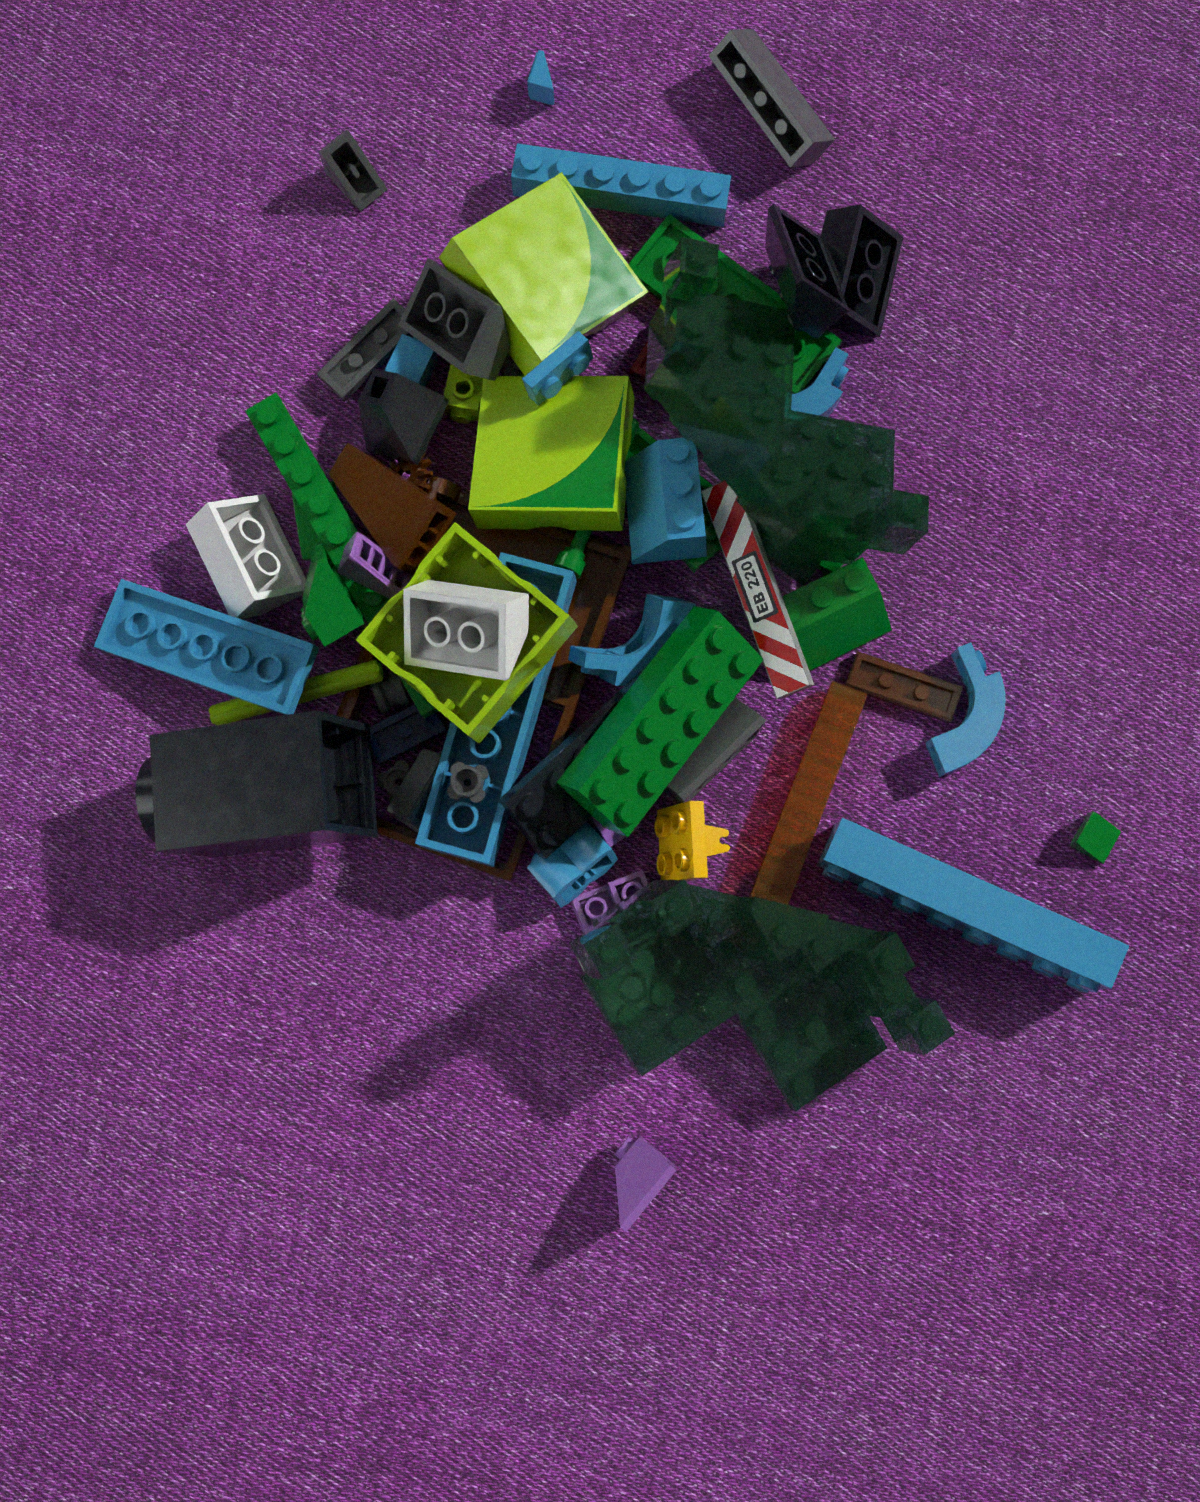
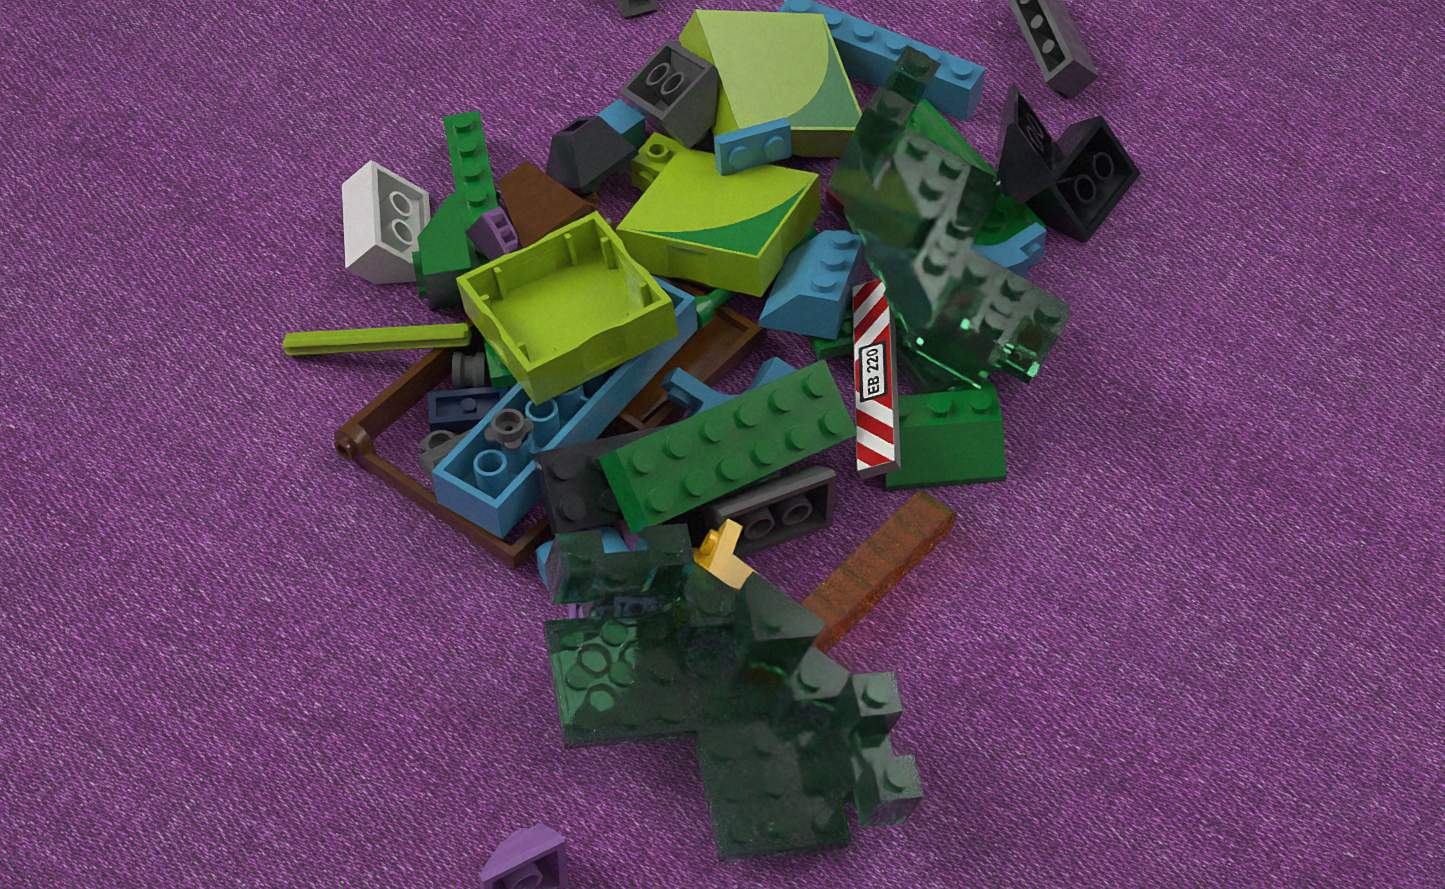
camera: 15 degrees right, 30 degrees down
(207, 647) = (311, 278): dark azure plate -> none
(258, 786) = (304, 376): black container -> none
(364, 352) = (553, 117): dark grey plate -> none
(464, 628) = (566, 287): white slope -> none
(904, 687) = (1002, 528): reddish brown tile -> none
(972, 906) = (998, 725): dark azure brick -> none
(983, 717) = (1060, 582): dark azure arch -> none
(1095, 837) = (1158, 718): green slope -> none

